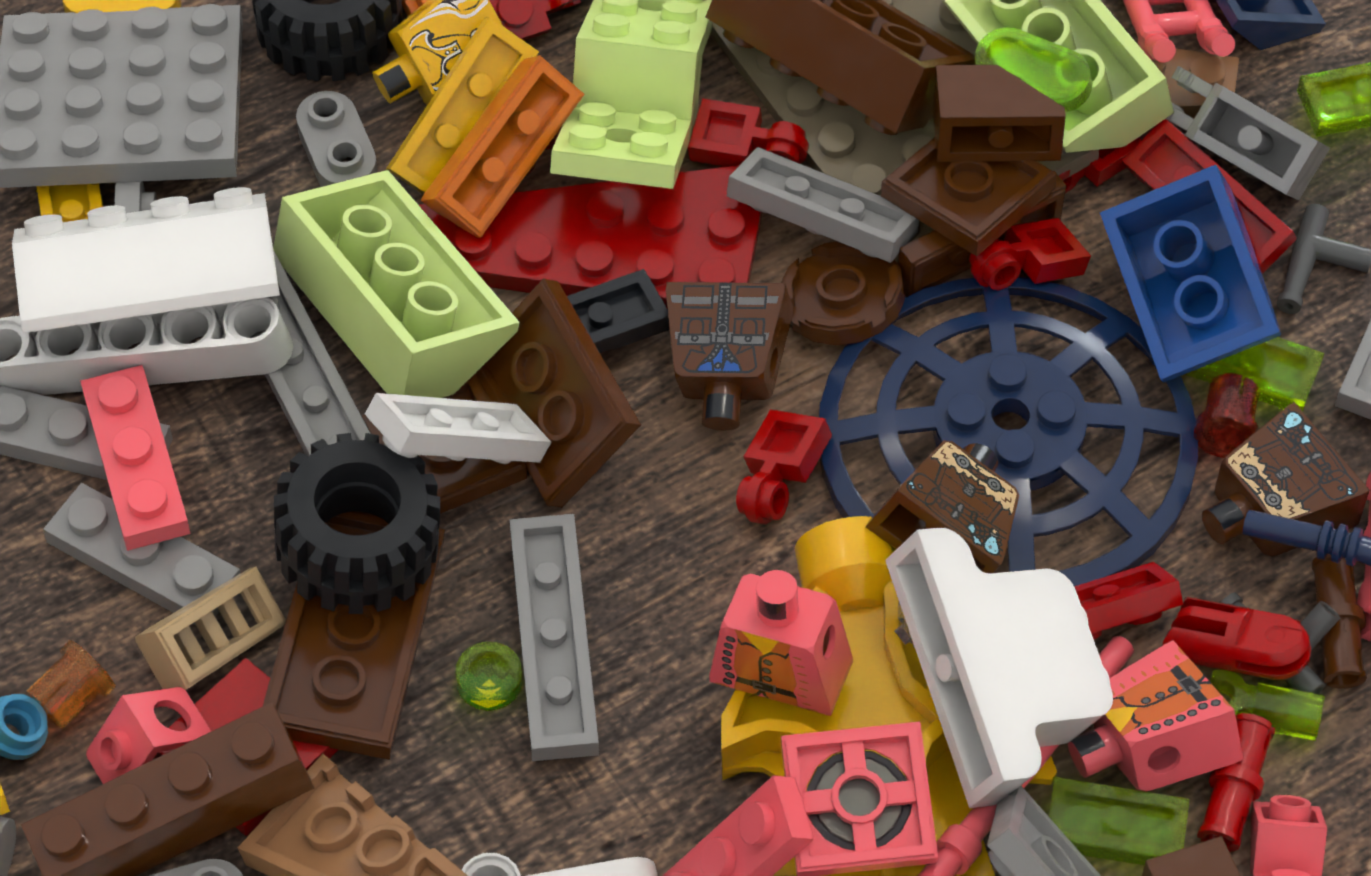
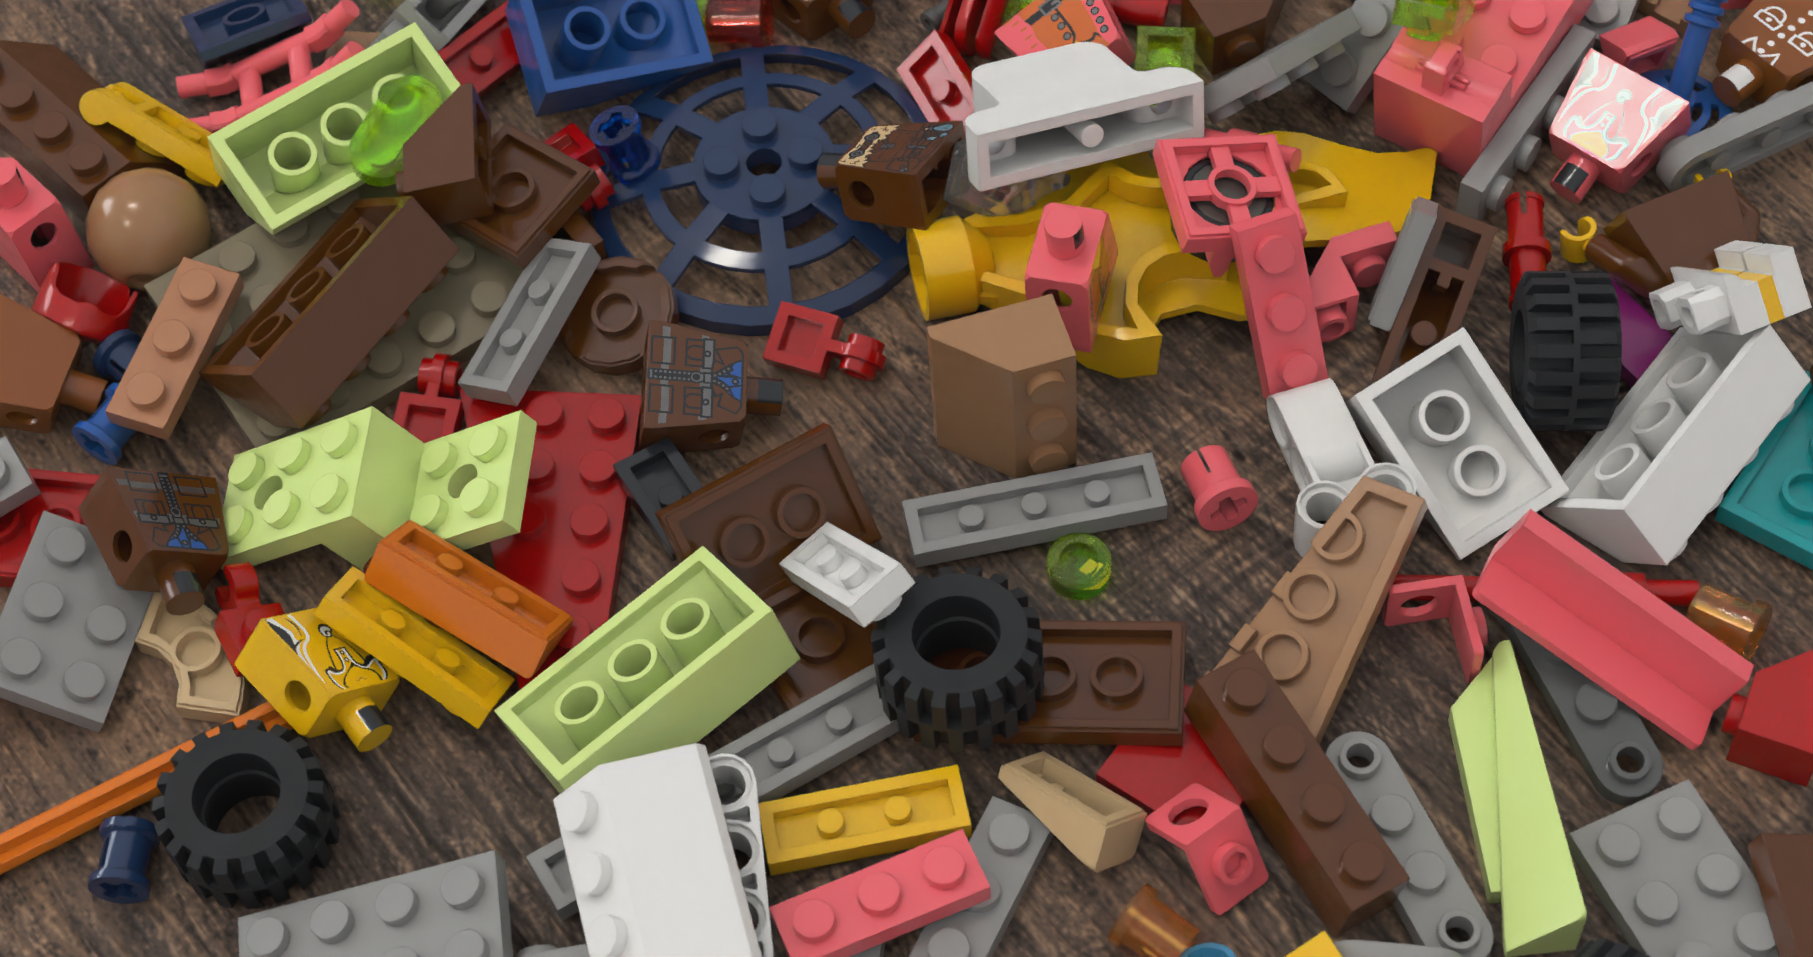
camera: 90 degrees left, 0 degrees up
(236, 465) = (863, 819): none -> yellow plate
(334, 138) = (433, 797): light grey plate -> none
(552, 803) = (1220, 493): none -> coral bush
(651, 592) = (1006, 388): none -> medium nougat slope
(1037, 274) = (625, 144): none -> clear blue bush

